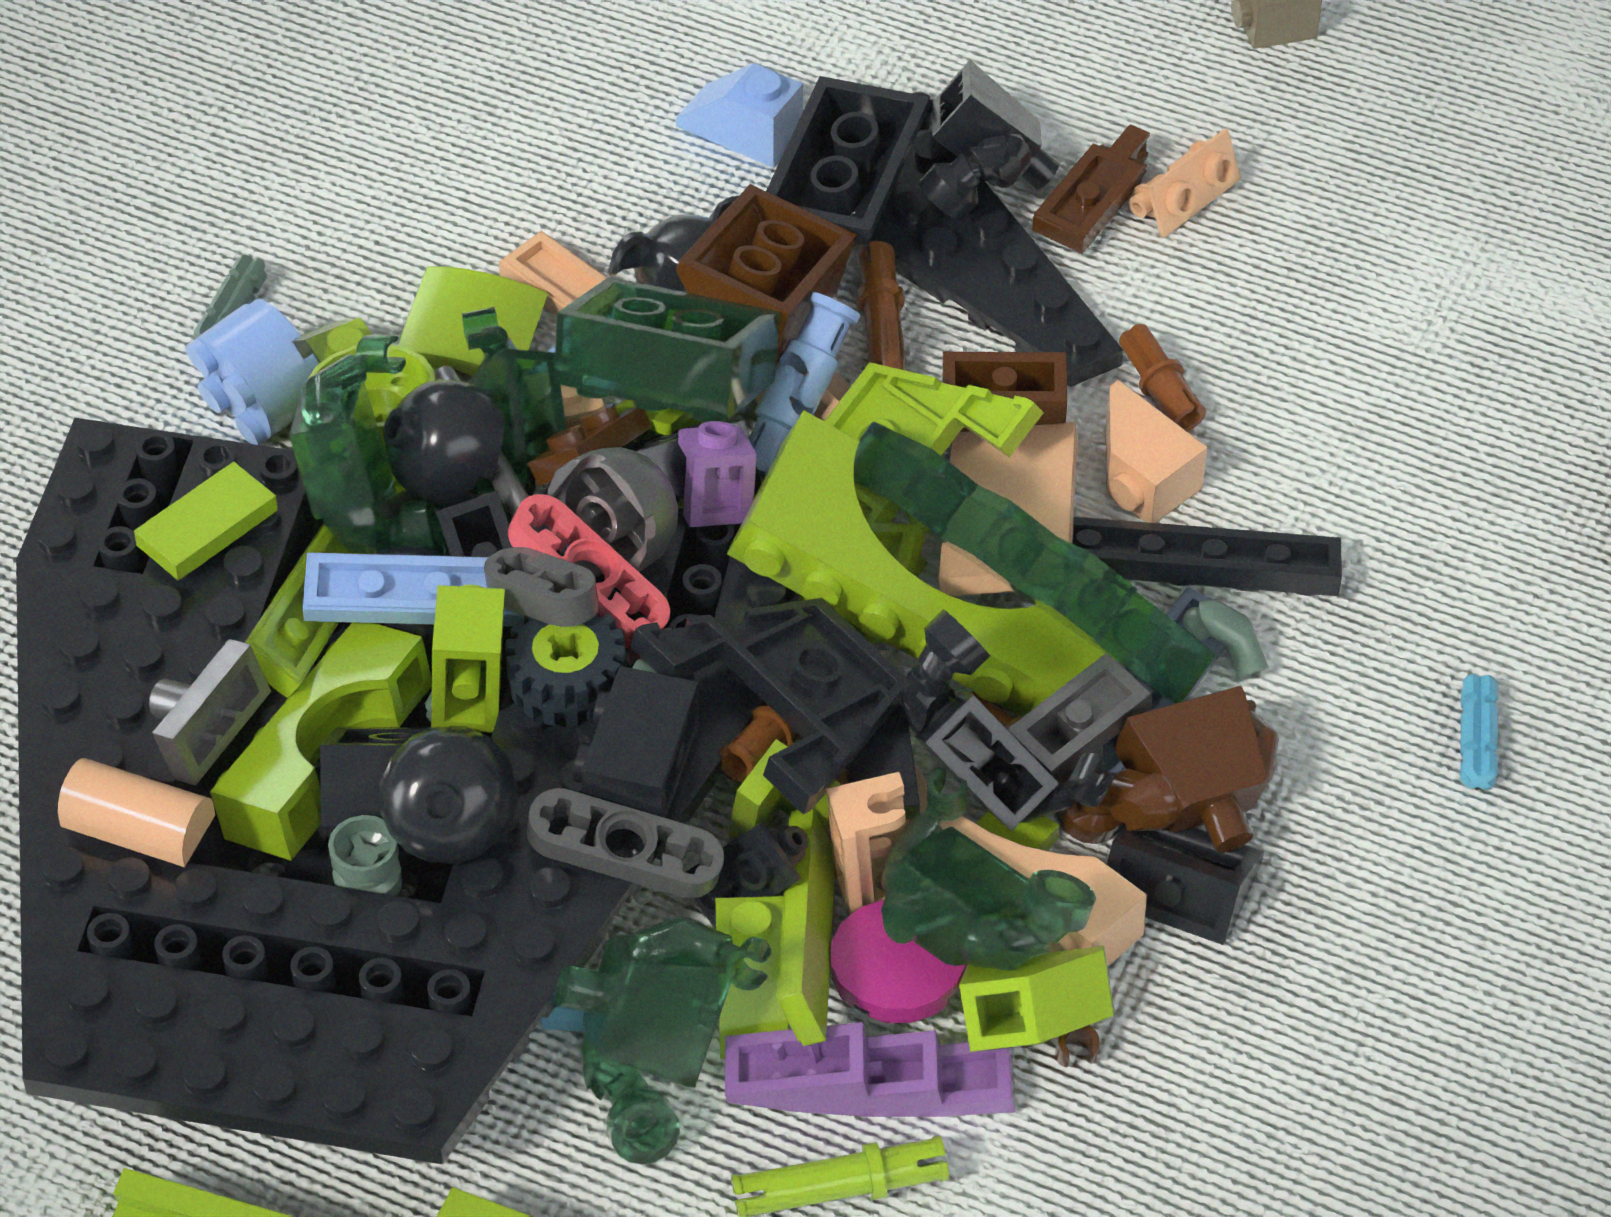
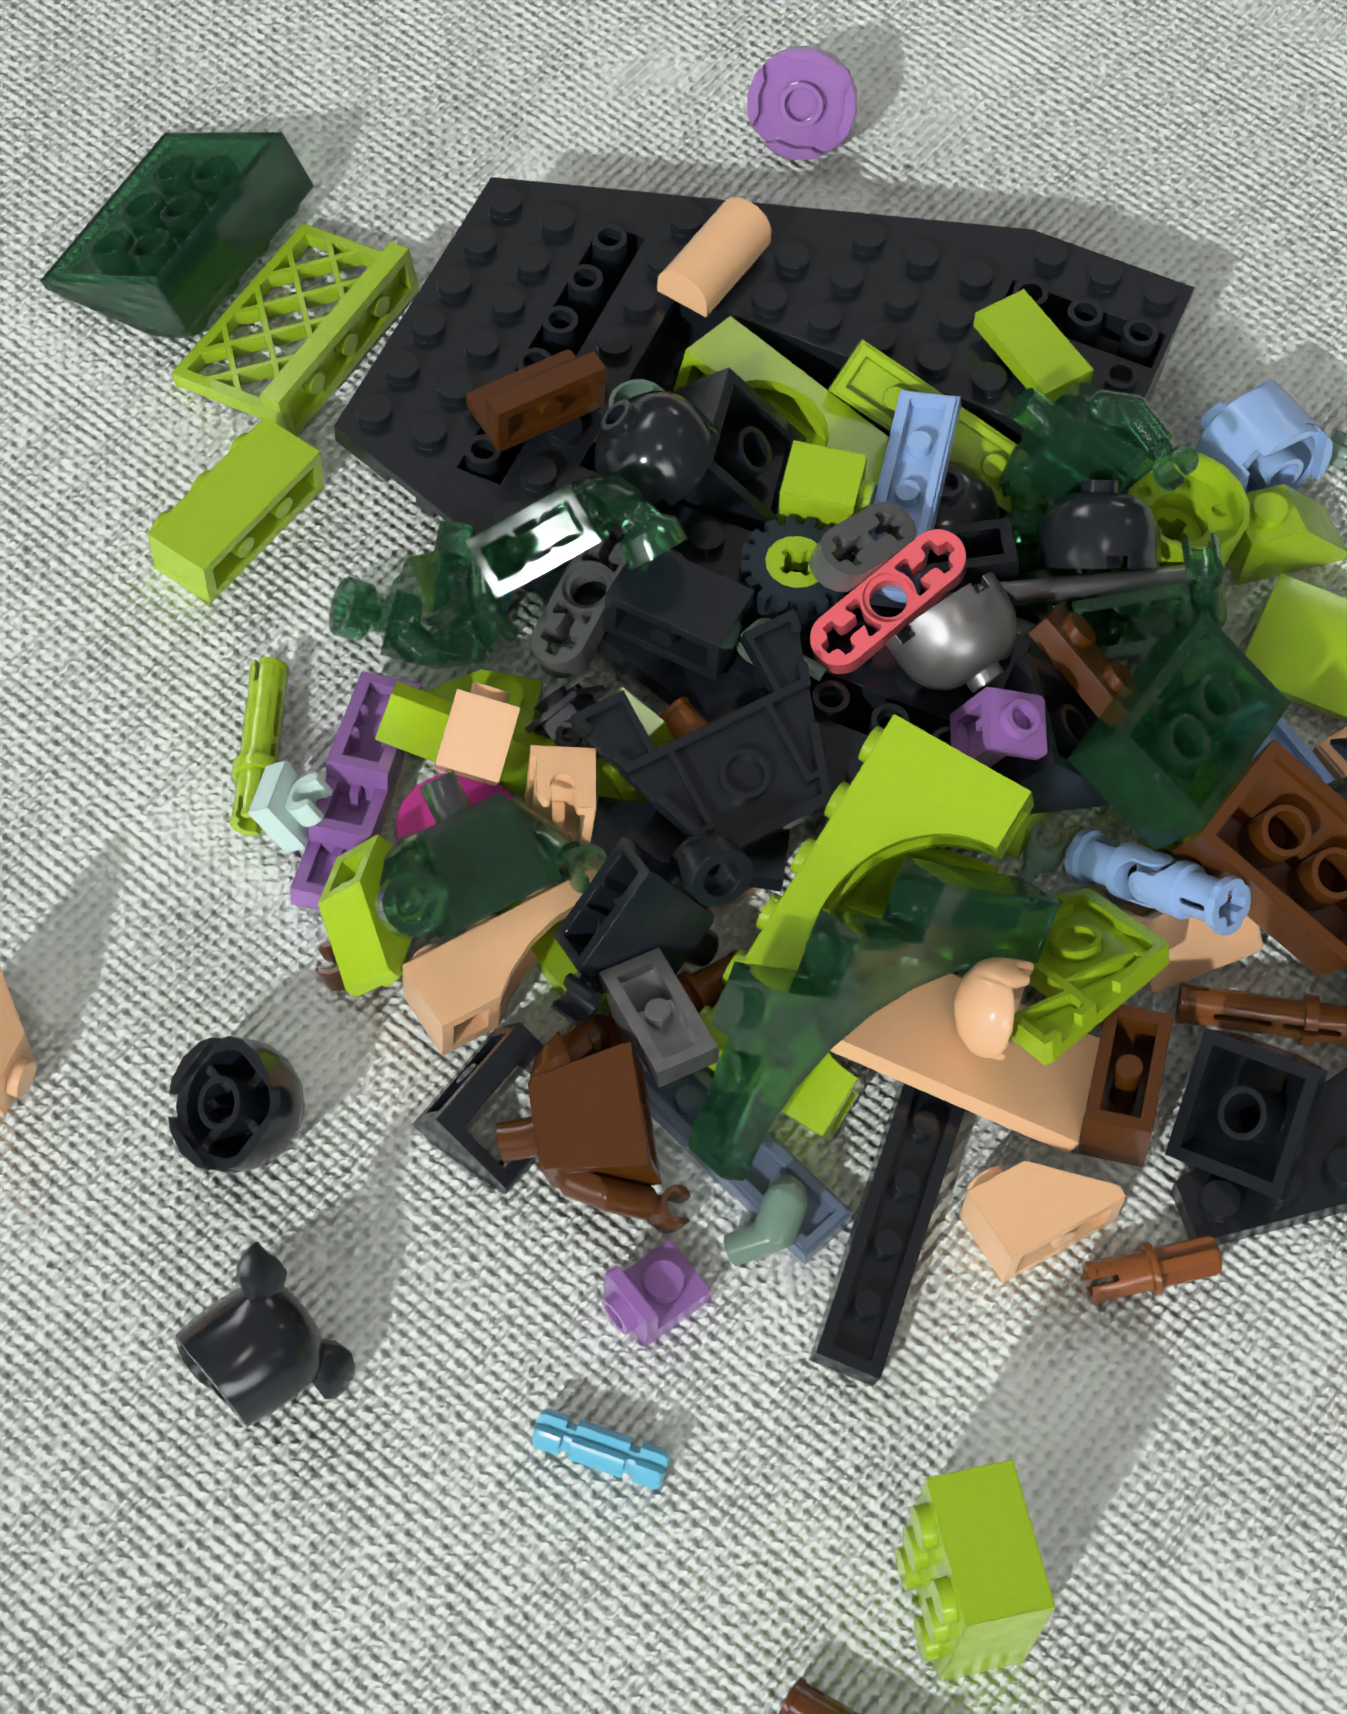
camera: 100 degrees right, 10 degrees up
(209, 713) = (800, 310): flat silver tile -> none
(376, 936) = (539, 398): none -> reddish brown panel
(606, 830) = (553, 533): none -> clear green torso
(834, 903) = (478, 734): none -> light nougat brick
(919, 1117) = (287, 804): none -> light aqua tile
(995, 454) = (987, 1004): none -> light nougat hair
(1002, 297) = (1246, 1112): none -> black slope
(1286, 1058) = (235, 1104): none -> black cylinder
(1321, 720) = (654, 1293): none -> medium lavender bracket
(1507, 415) = (974, 1571): none -> lime brick
(1520, 977) = (262, 1344): none -> black piece

